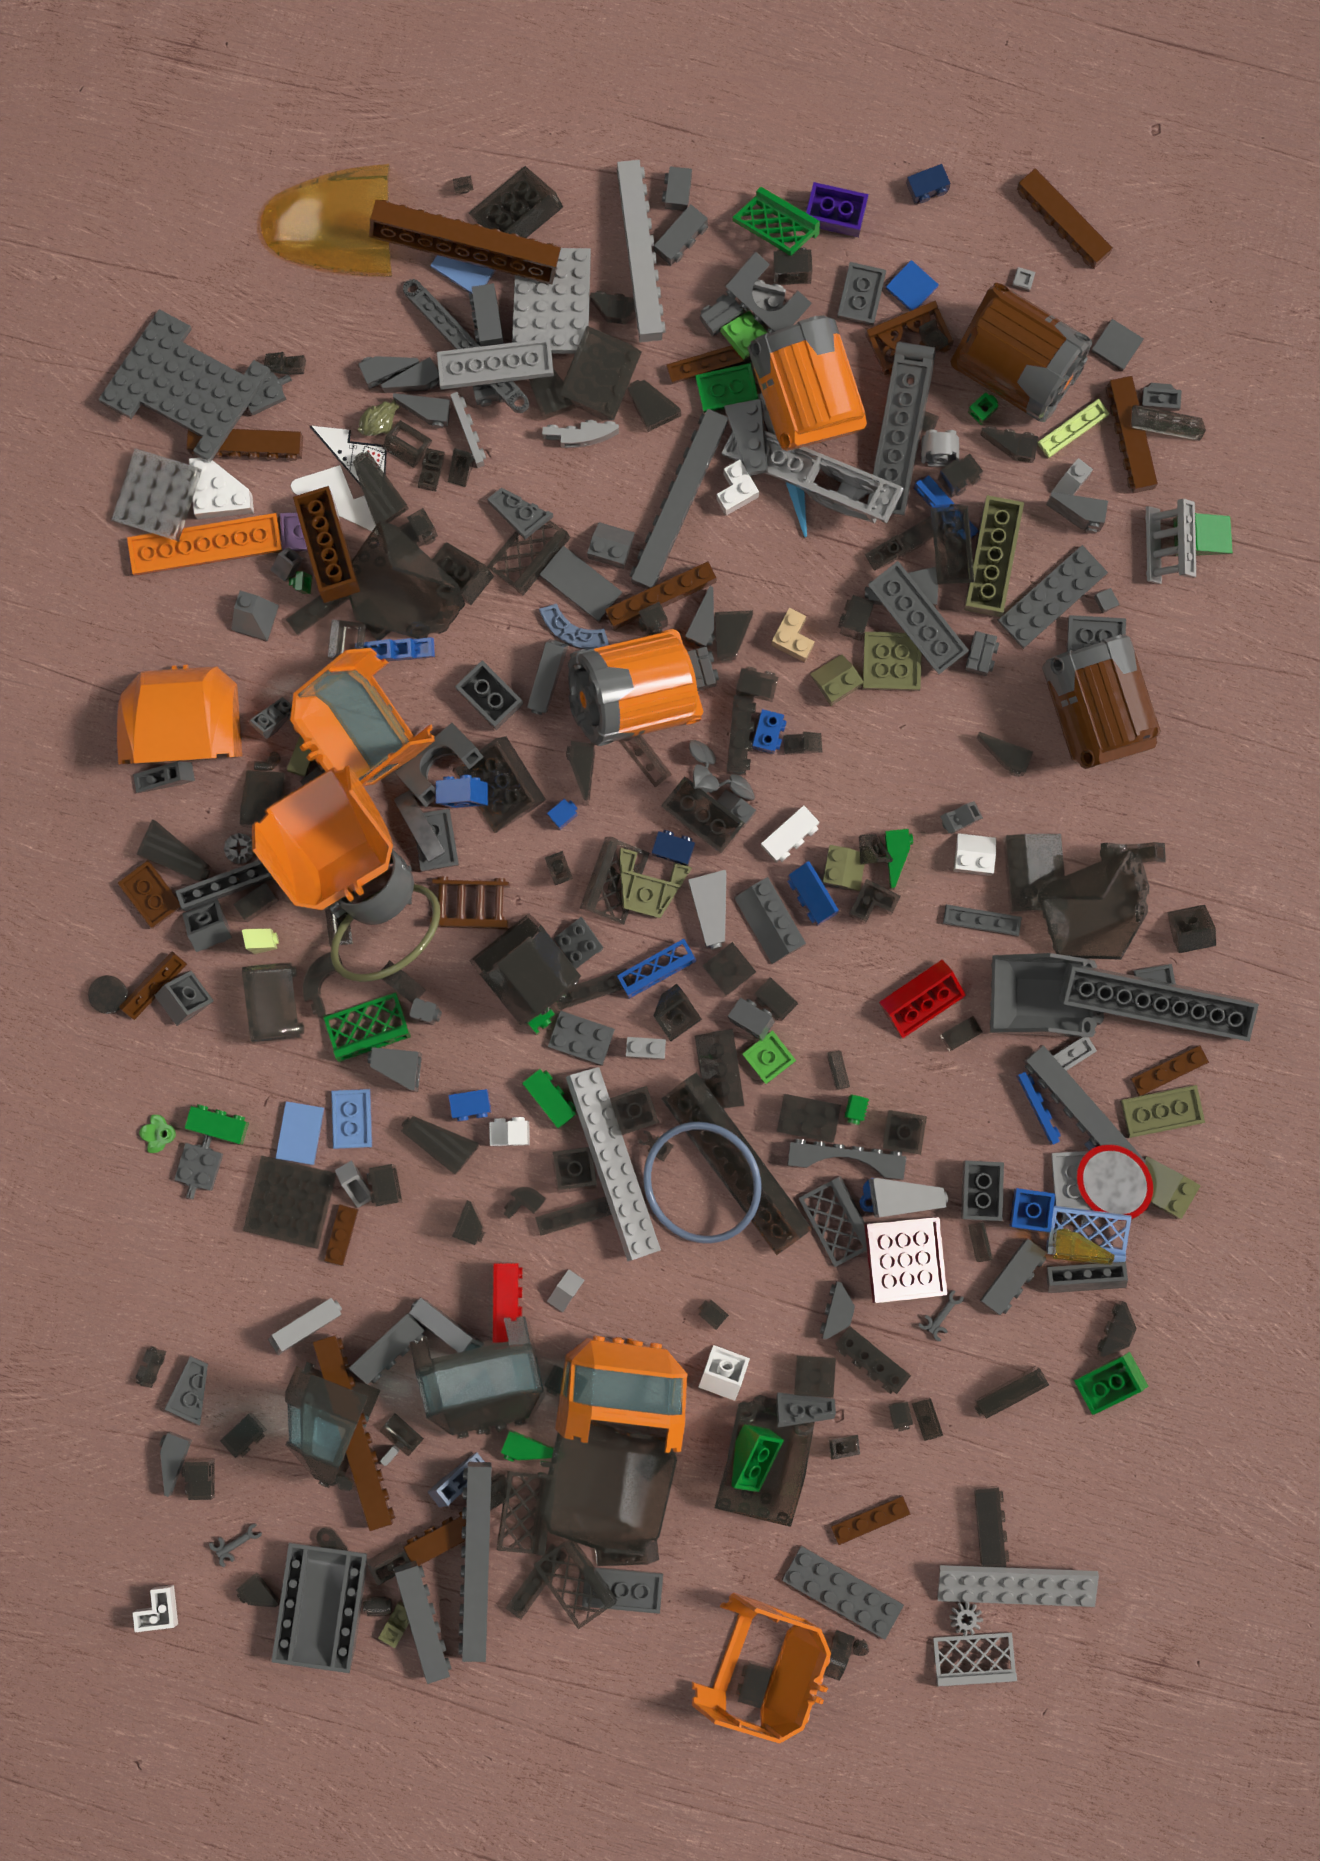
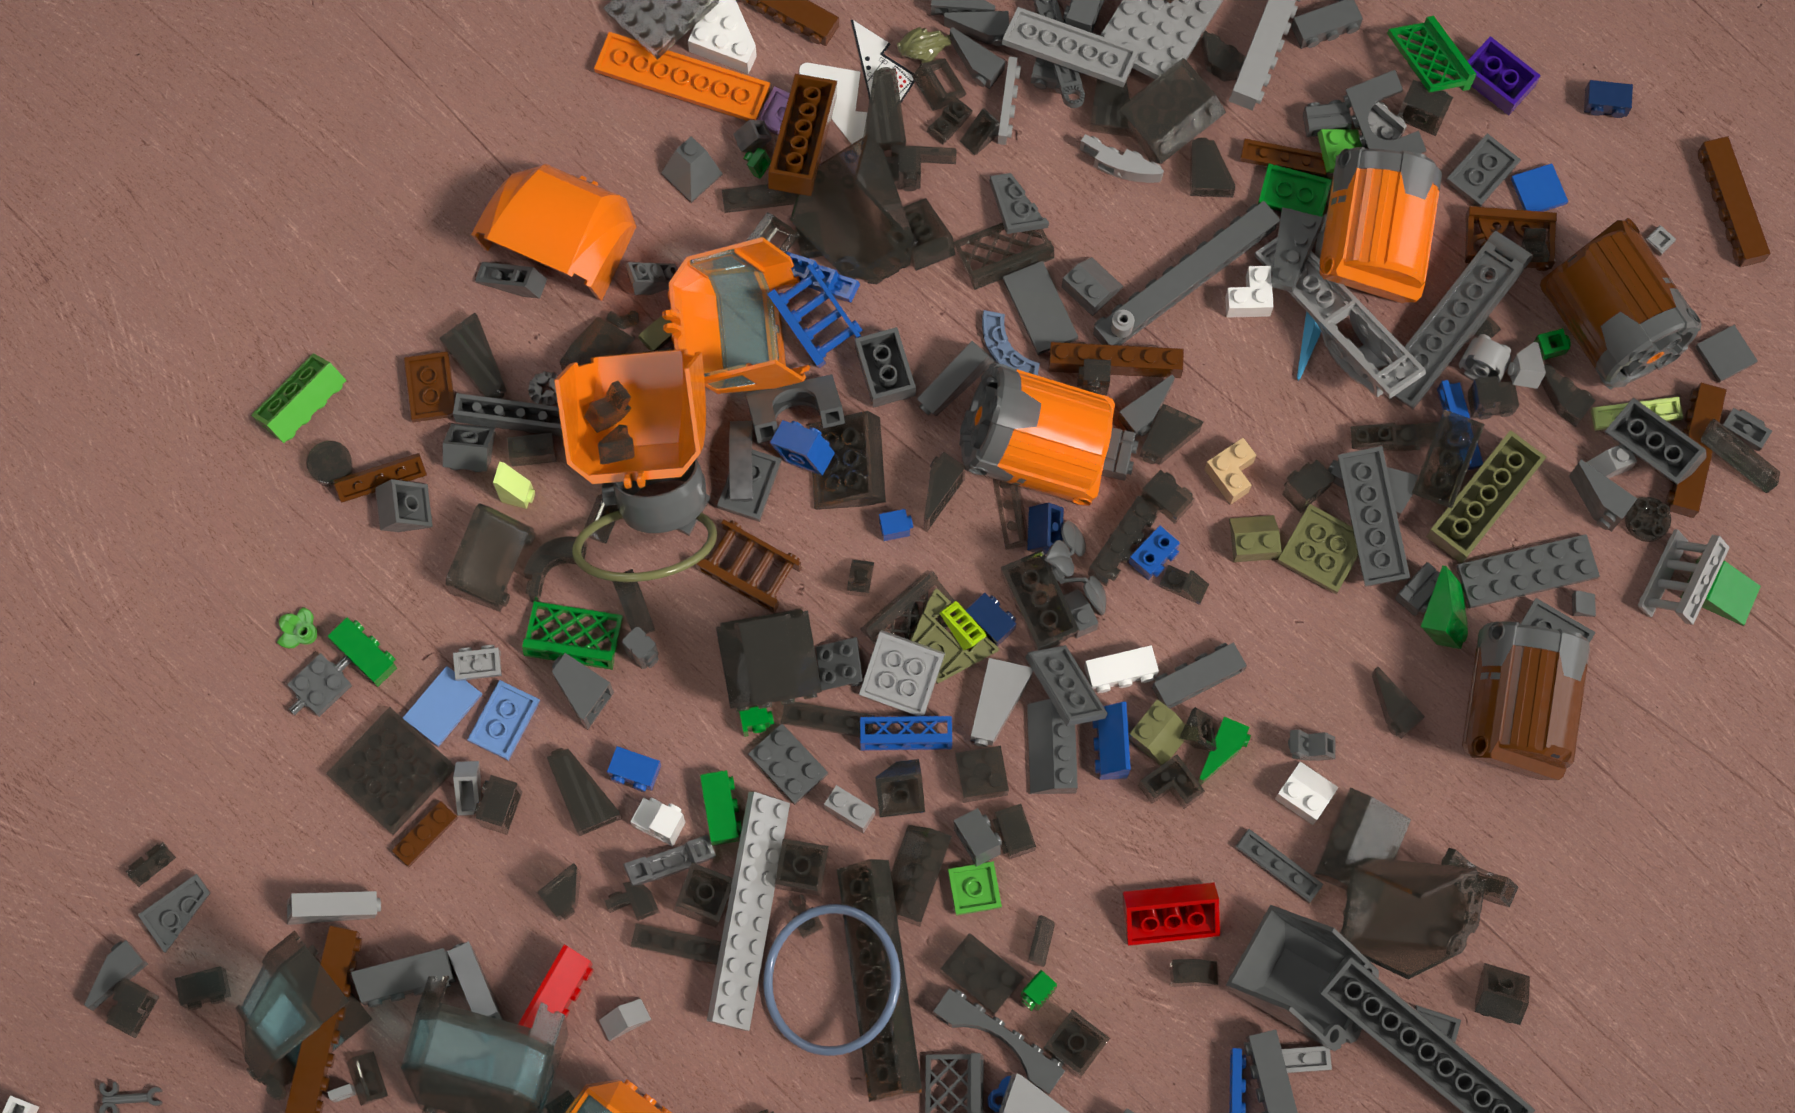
camera: 20 degrees right, 10 degrees down
(54, 956) = (299, 398): none -> bright green slope
(301, 843) = (610, 409): none -> clear smoke brick
(308, 1088) = (477, 663): none -> light grey bracket
(323, 870) = (616, 446): none -> clear smoke slope
(415, 701) = (794, 317): none -> blue fence
(429, 506) = (931, 154): none -> clear smoke tile
(534, 1158) = (669, 862): none -> flat silver slope
(630, 926) = (902, 673): none -> light grey plate
(652, 572) = (1122, 323): none -> light grey brick
(657, 860) = (966, 620): none -> lime slope
(677, 757) = (1044, 526): none -> dark blue brick
(757, 870) = (1066, 685): none -> dark grey tile
(851, 808) = (1199, 676): none -> dark grey brick
(975, 437) = (1527, 367): none -> light grey slope
(1010, 664) = (1446, 613): none -> green slope
(1100, 447) = (1656, 441): none -> dark grey slope
(1123, 508) = (1648, 519): none -> clear smoke tile

